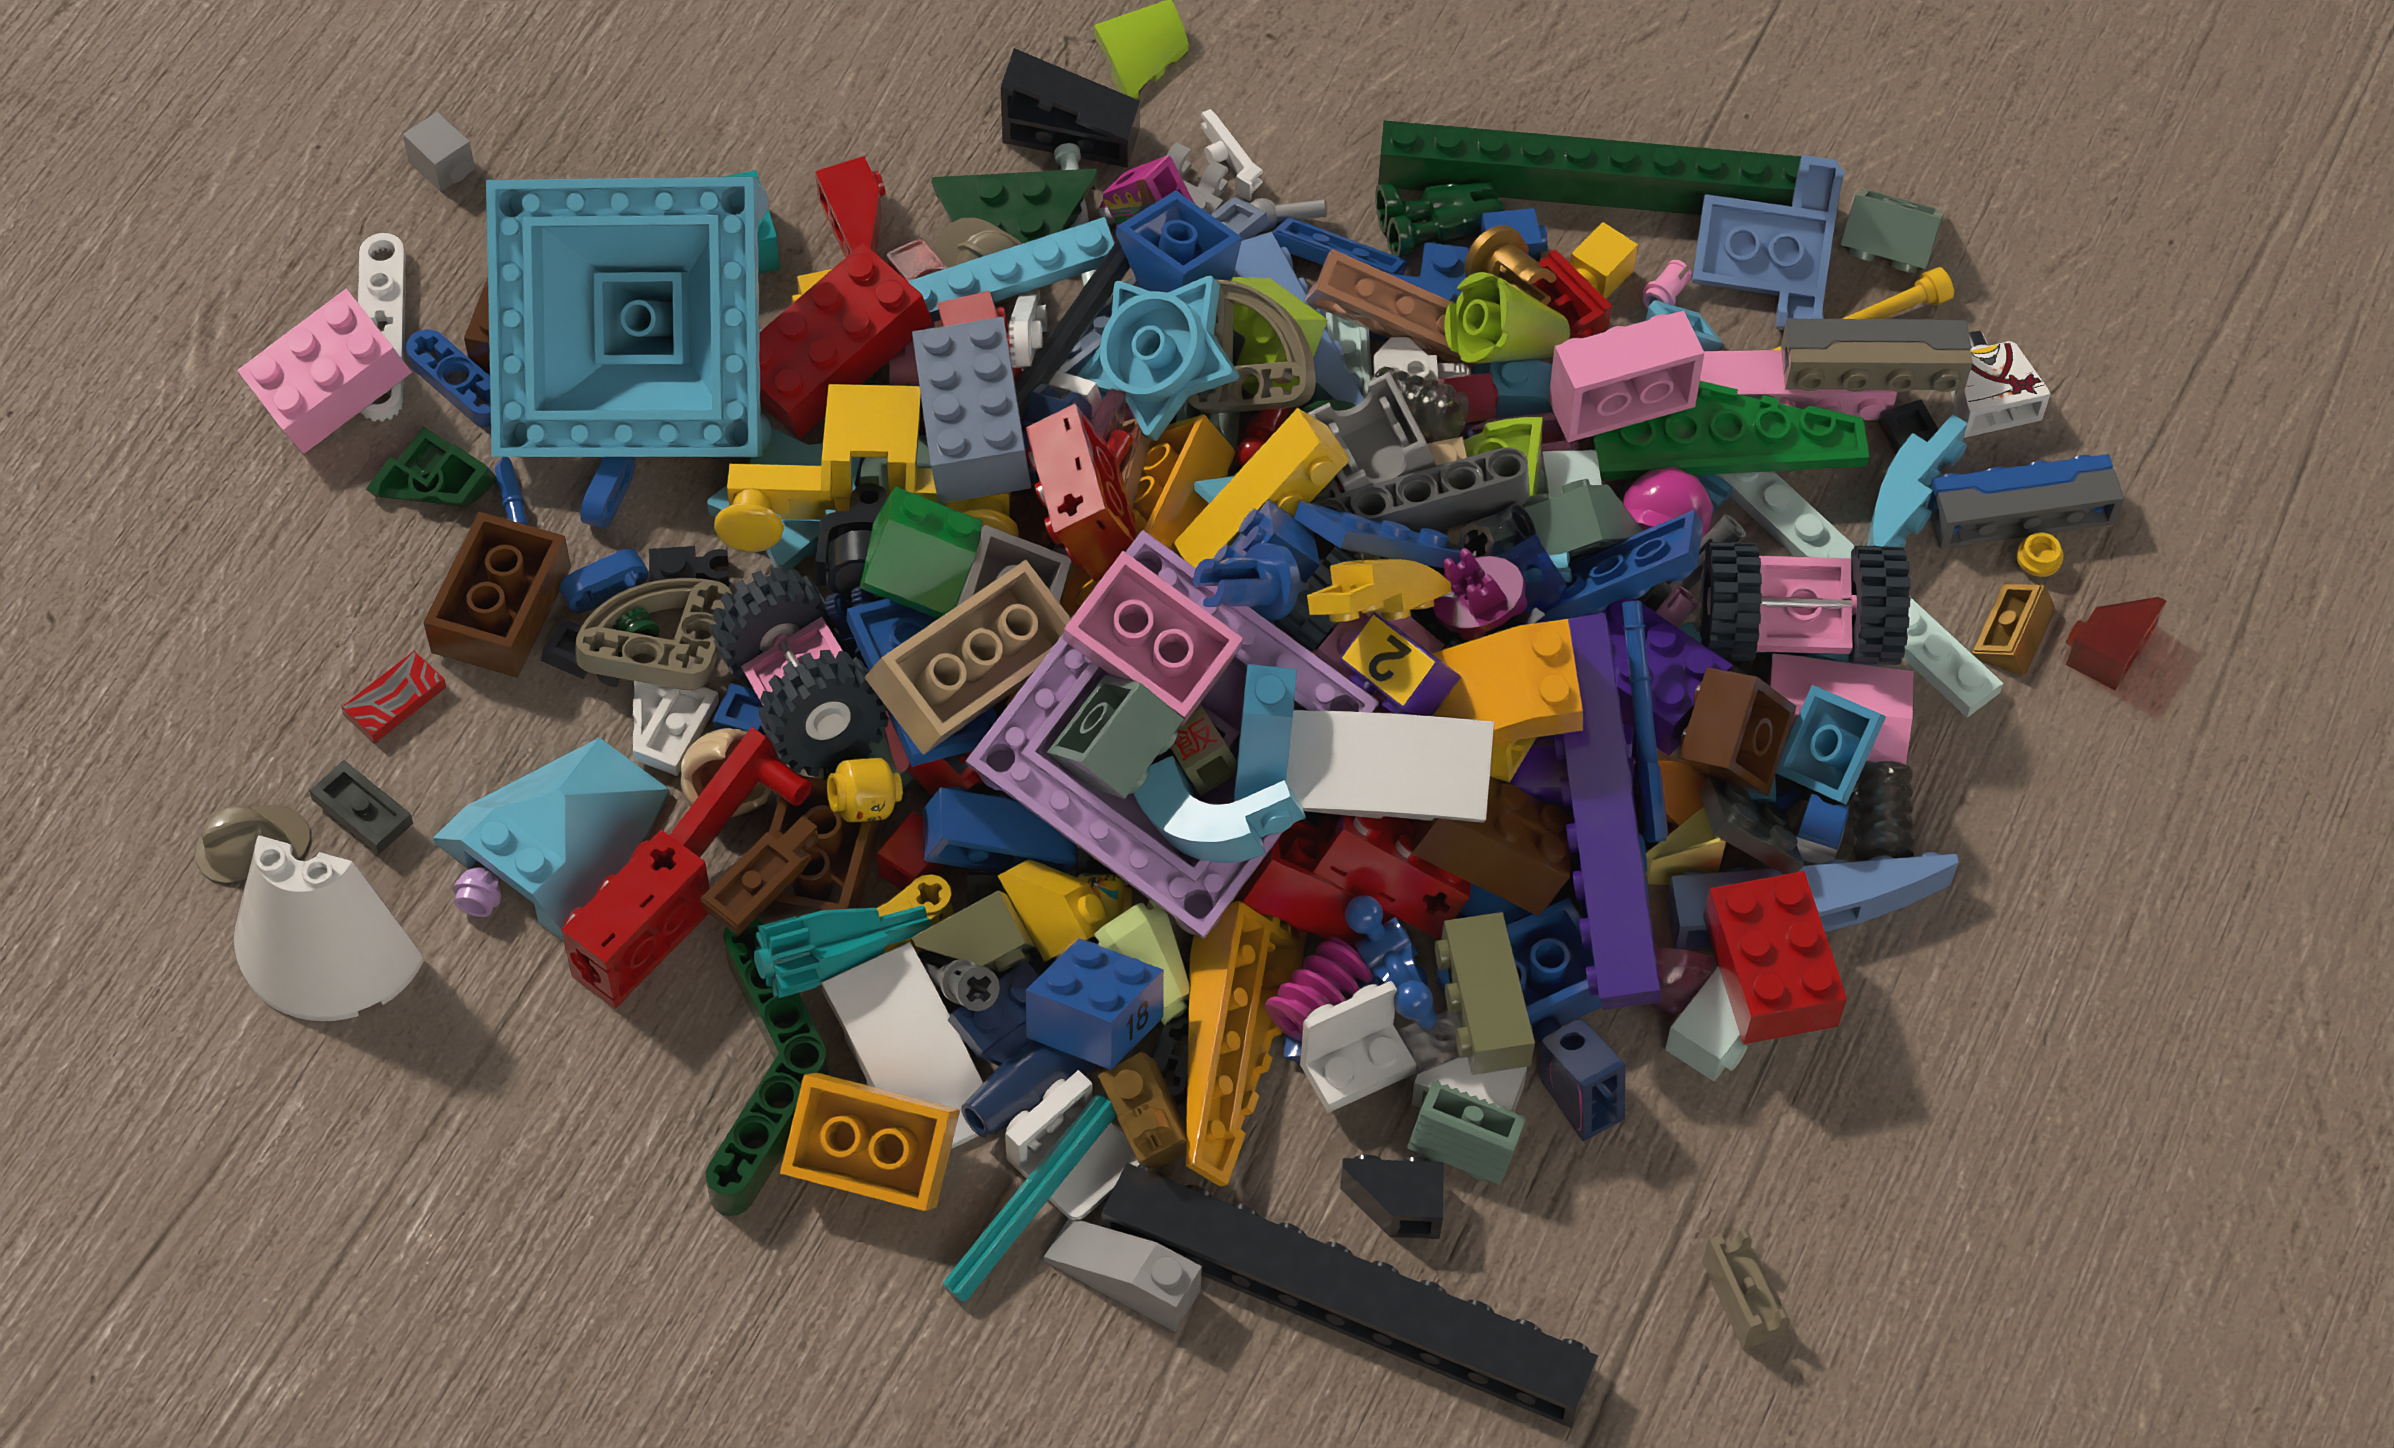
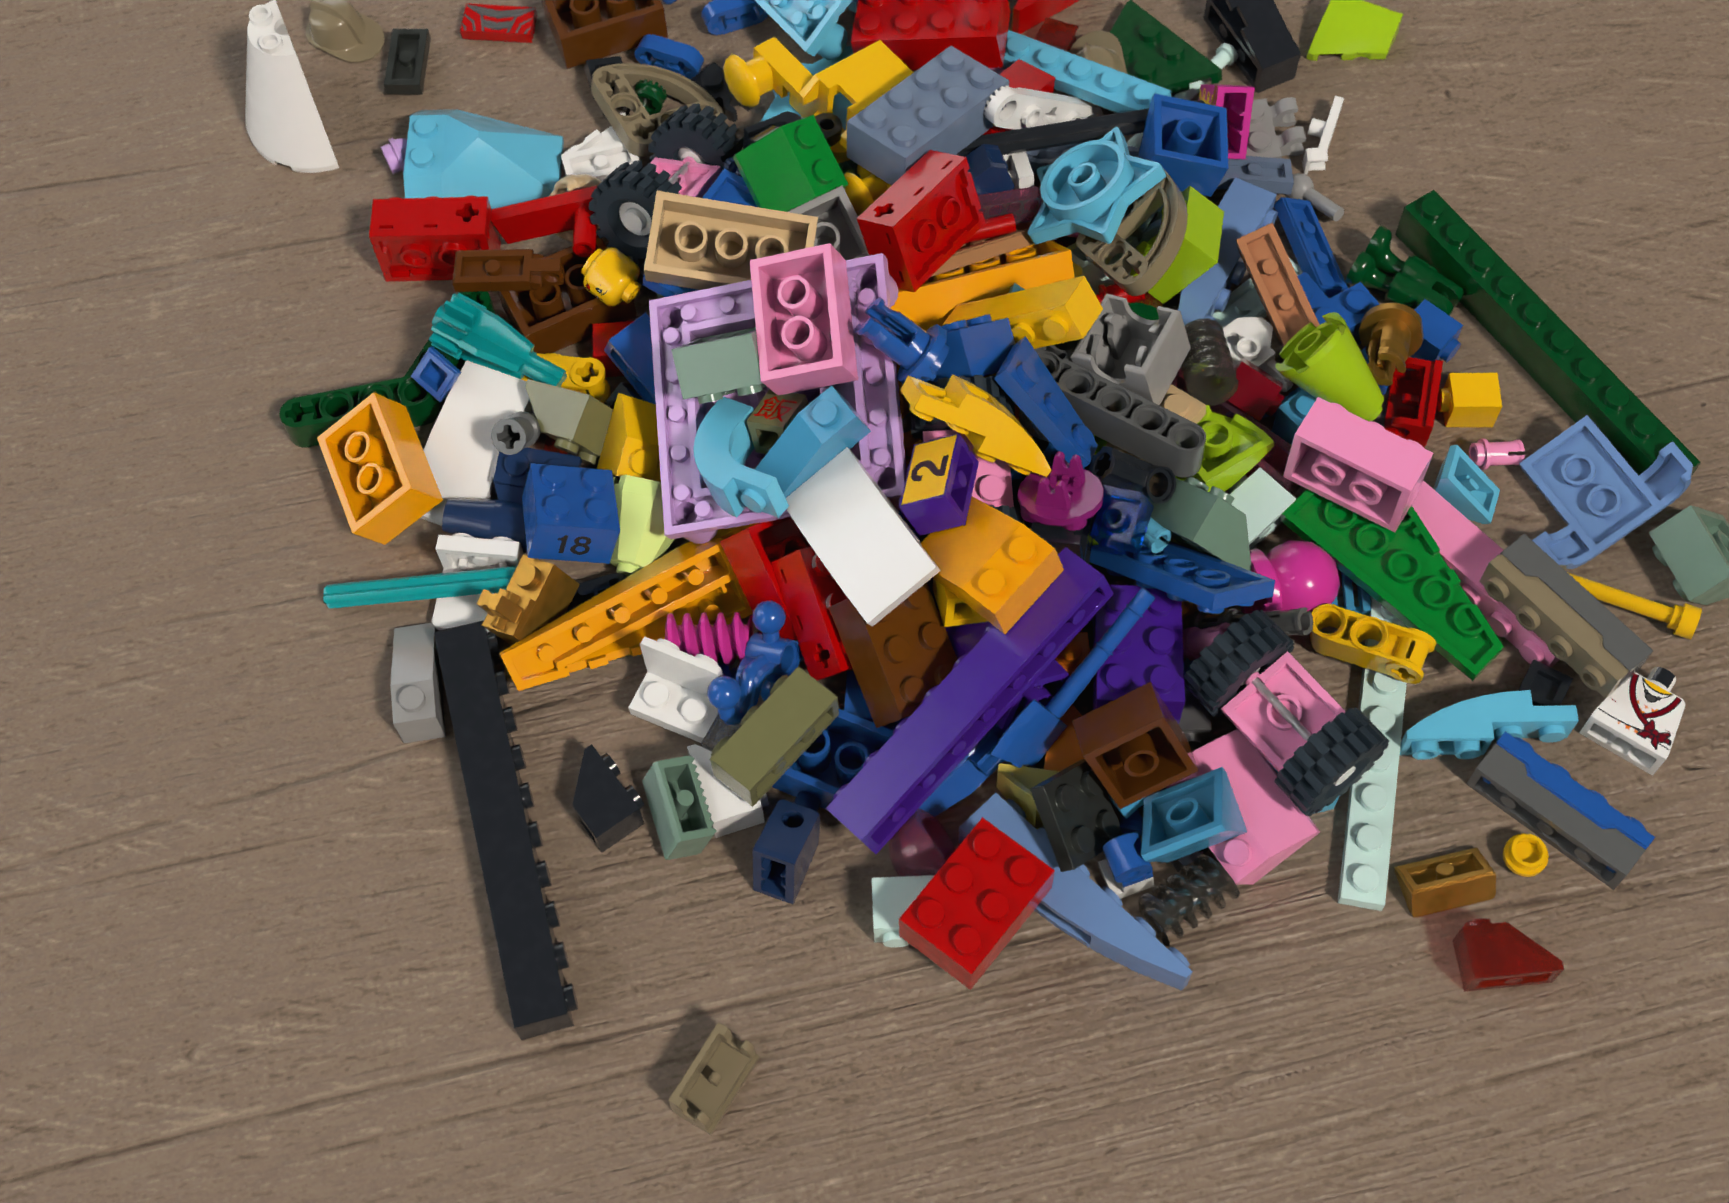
camera: 55 degrees right, 5 degrees up
(816, 1017) = (436, 374): none -> blue slope
(1799, 489) = (1393, 655): none -> yellow piece

